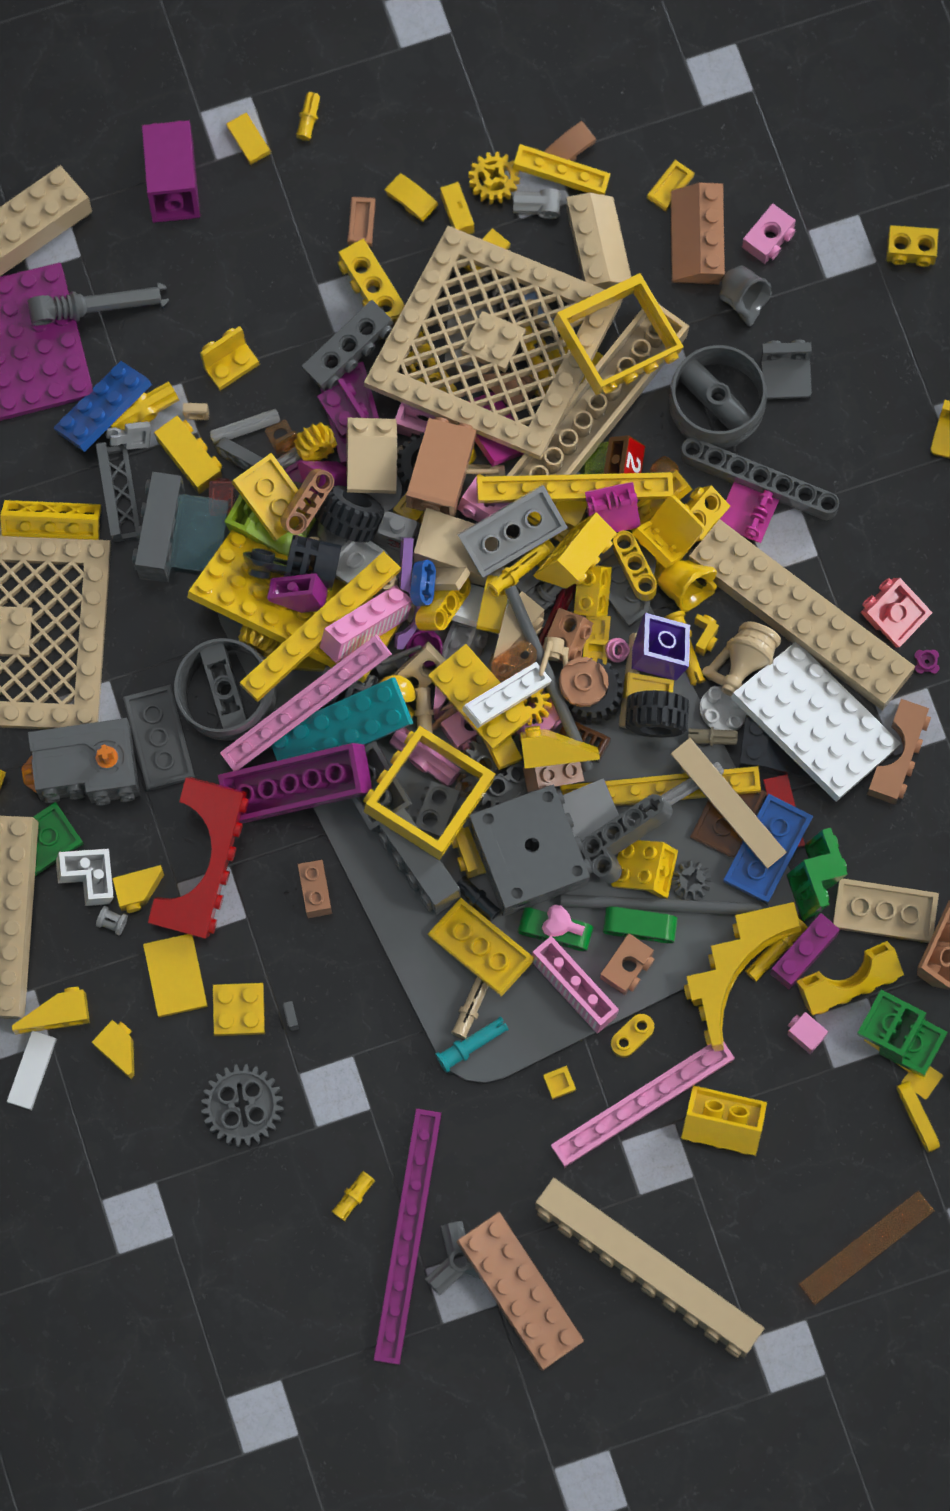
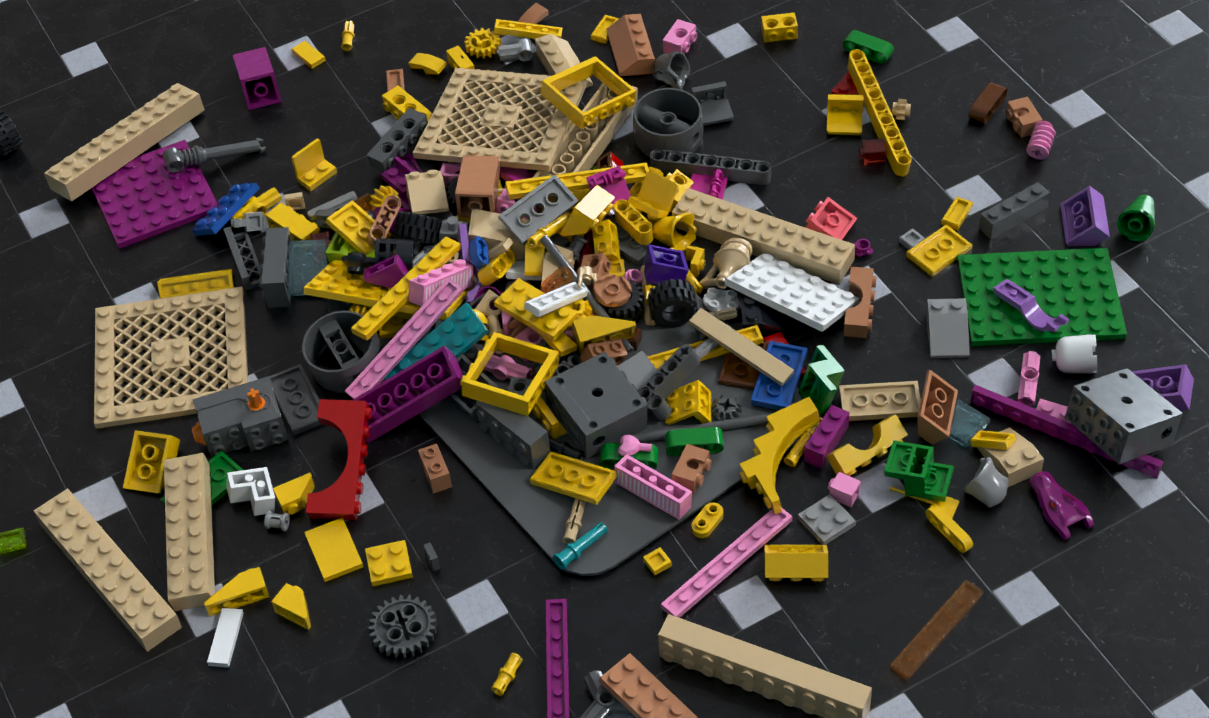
camera: 10 degrees left, 25 degrees down
(775, 1067) = (826, 519): none -> light grey plate

